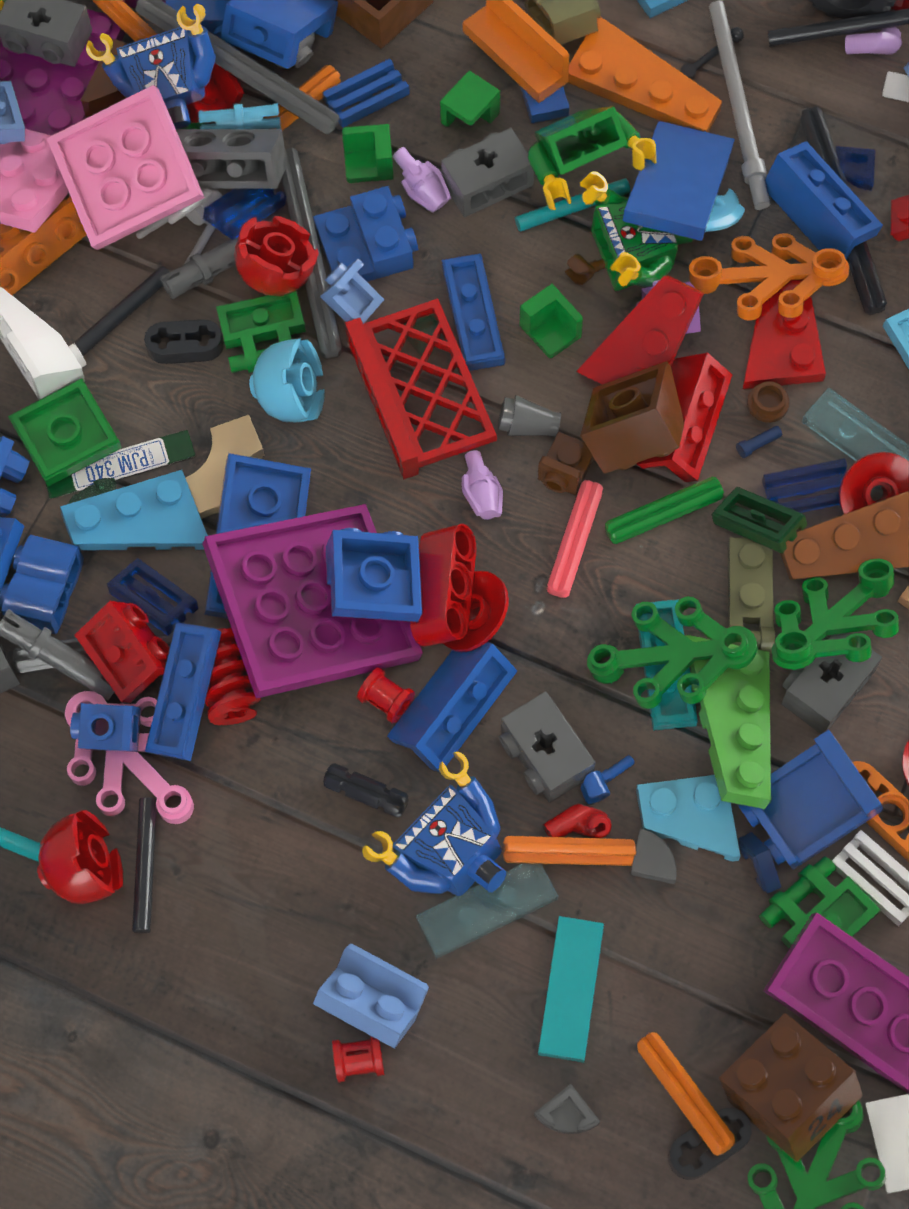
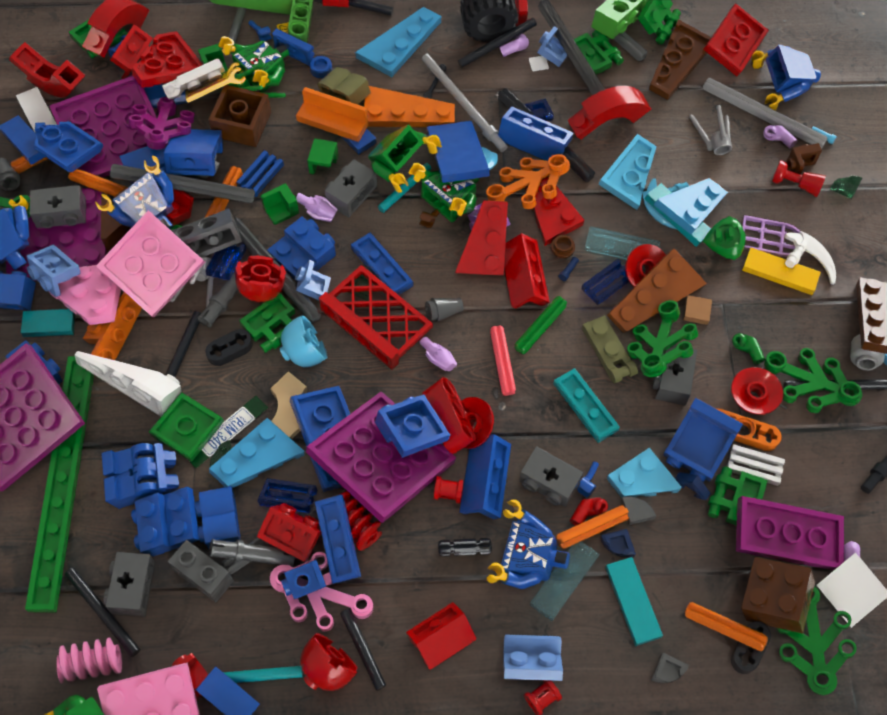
camera: 30 degrees left, 5 degrees down
(241, 118) = (200, 212): medium azure pin -> none
(262, 900) = (442, 635): none -> red panel
(551, 321) = (428, 251): green panel -> none
(565, 464) = (476, 323): reddish brown bracket -> none
(597, 894) = (619, 543): none -> dark blue tile
(633, 419) = (502, 283): reddish brown slope -> none
(677, 653) = (592, 394): green plant -> none
(739, 729) = (640, 412): bright green wing -> none
(753, 523) = (593, 310): dark green tile -> none

